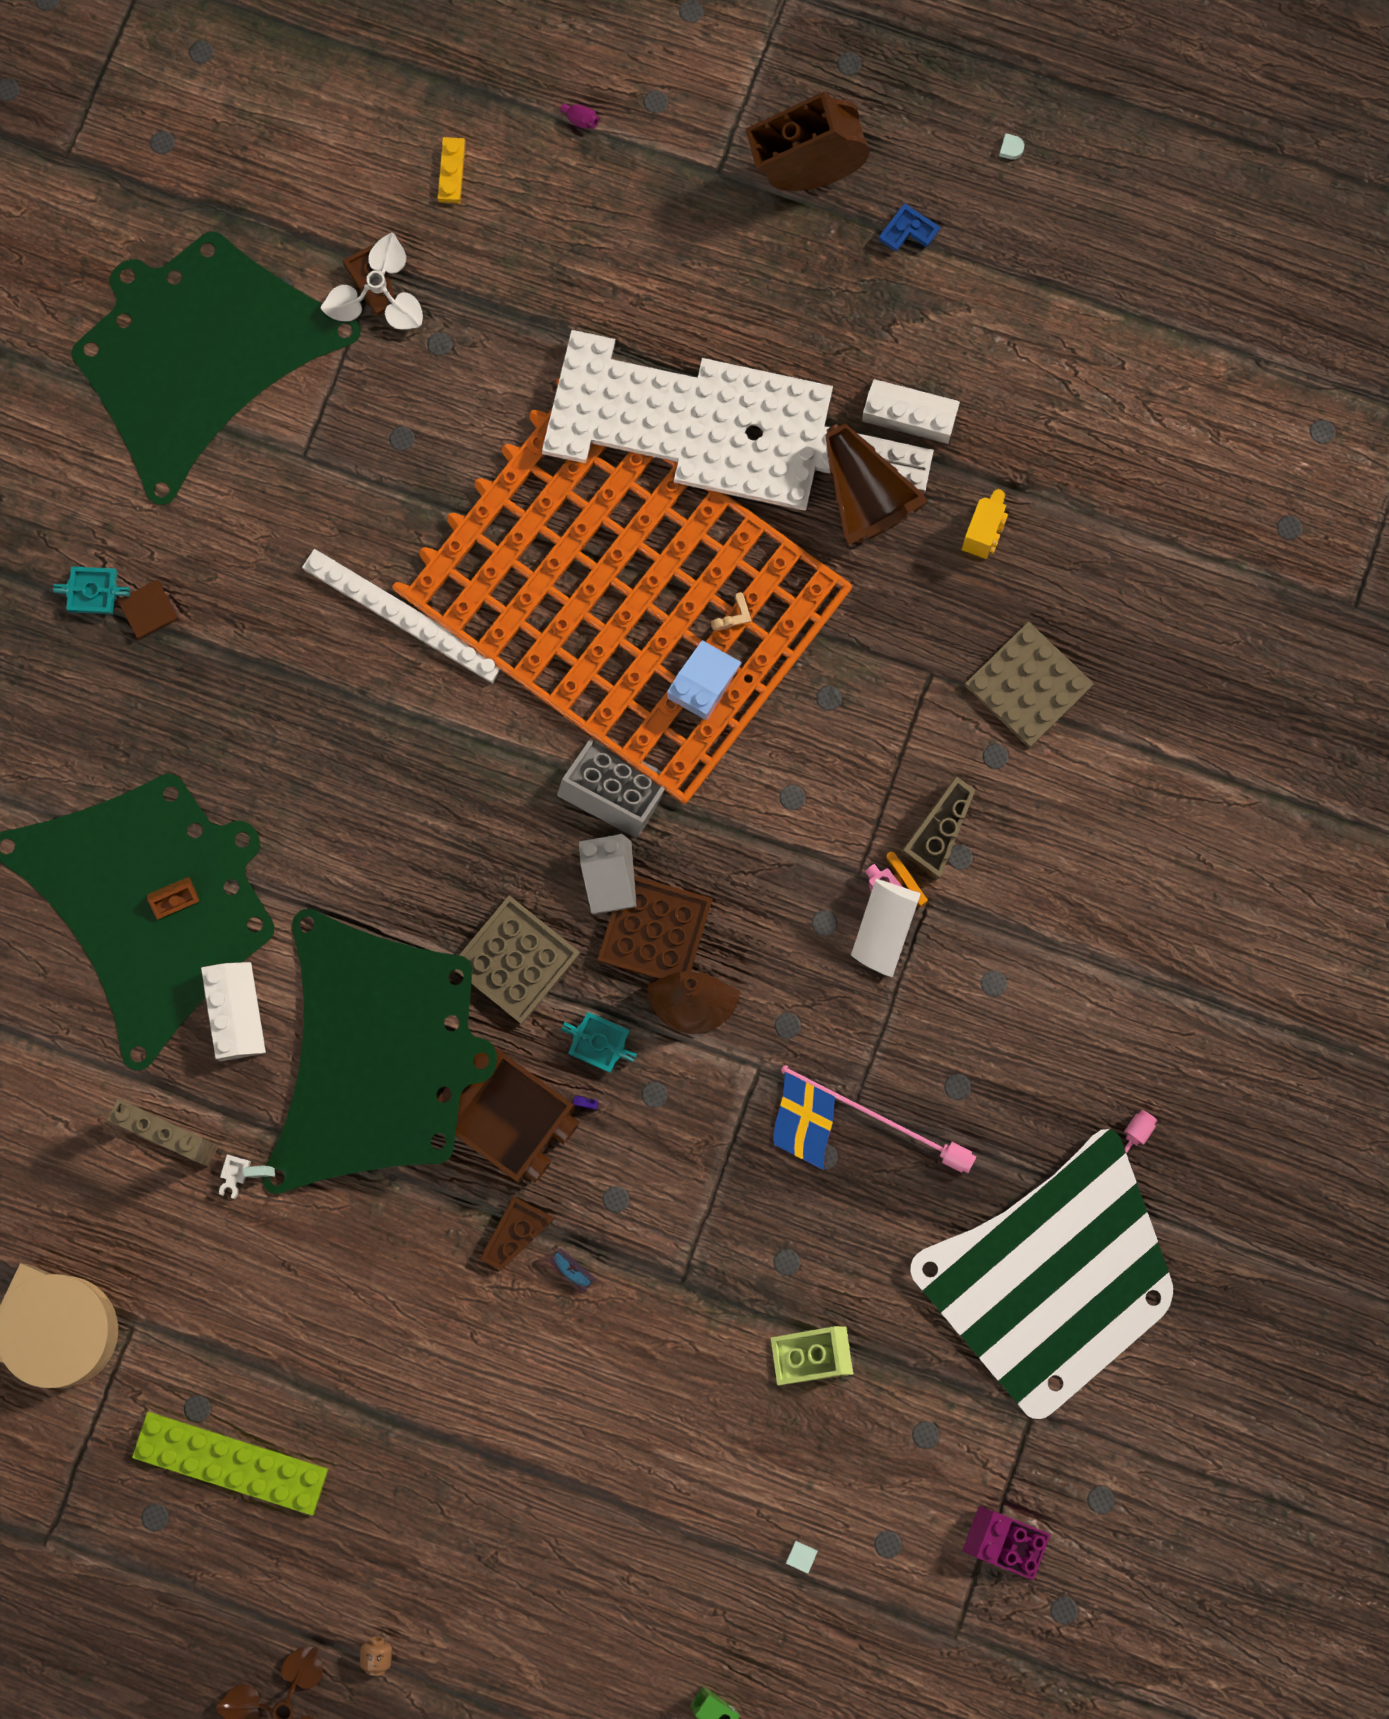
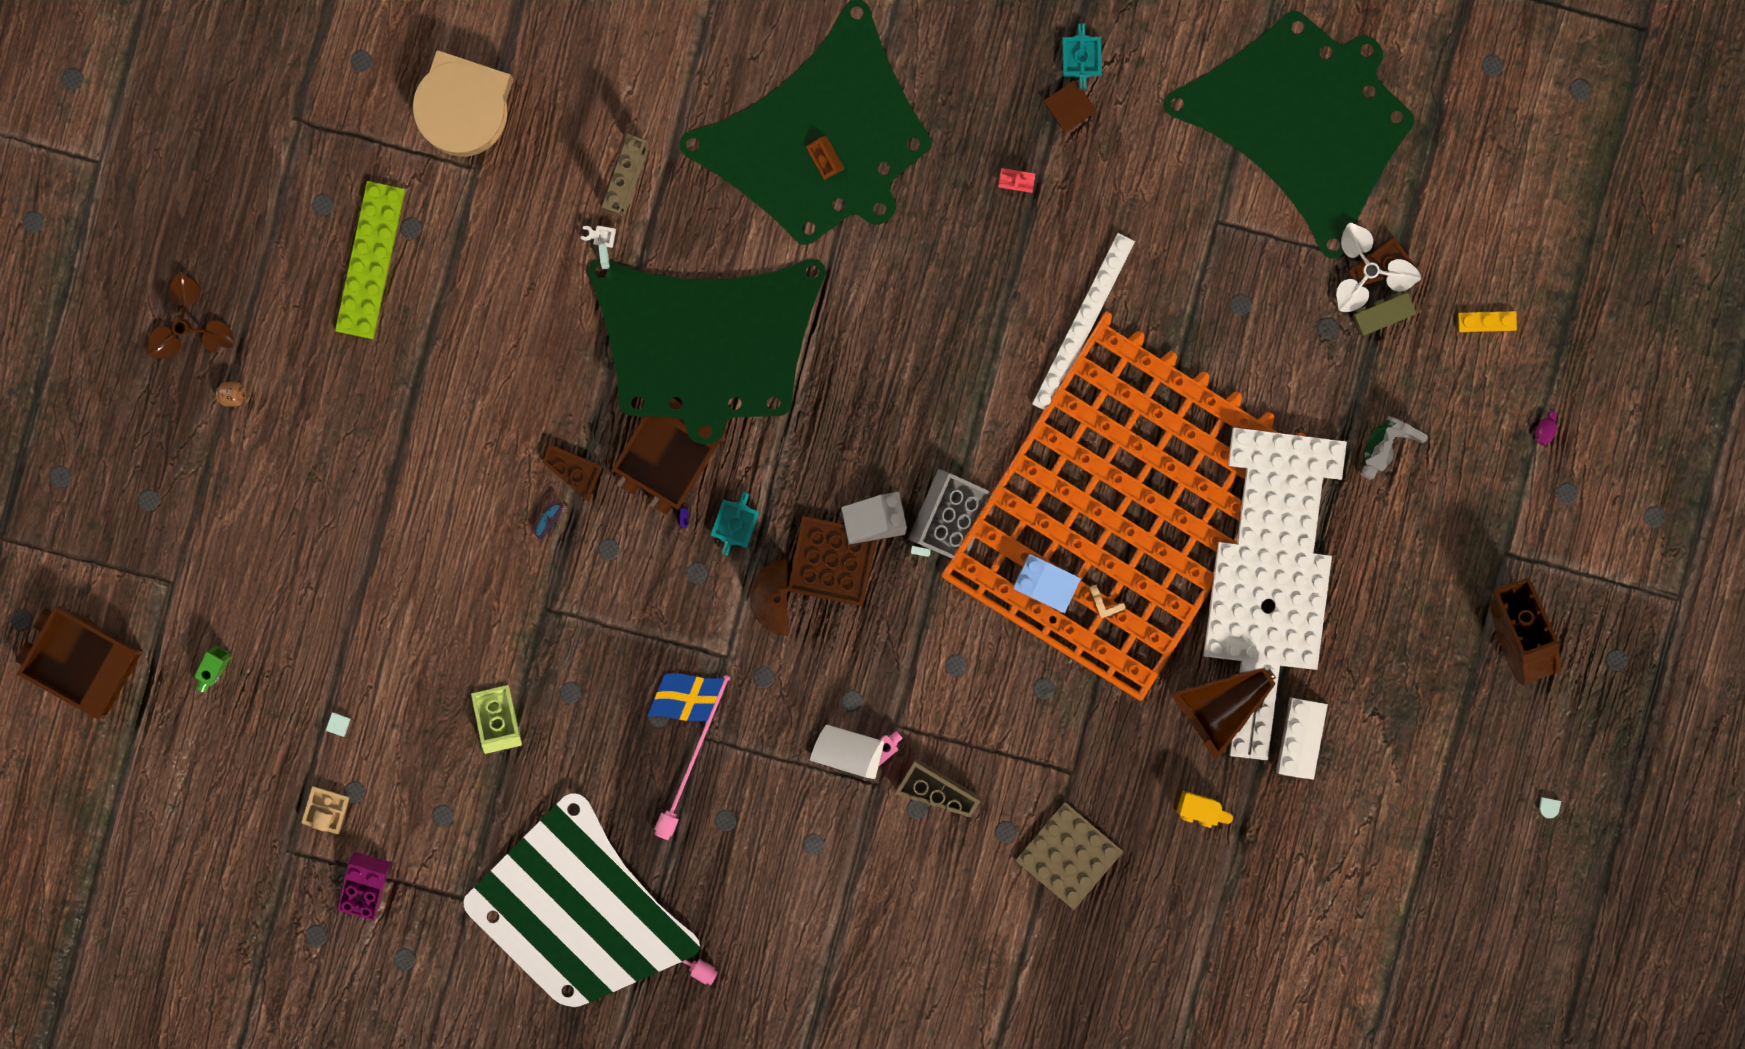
camera: 80 degrees right, 10 degrees up
(226, 675) = (1016, 180): none -> coral hips
(233, 1010) = (734, 220): white slope -> none
(429, 279) = (1383, 313): none -> olive brick
(517, 959) = (798, 449): dark tan plate -> none
(584, 294) = (1379, 449): none -> light grey hips
(653, 824) = (920, 551): none -> light aqua tile
(904, 877) = (893, 762): light orange hinge -> none
(907, 1583) = (325, 810): none -> tan plate
(908, 223) = (1470, 723): blue plate -> none

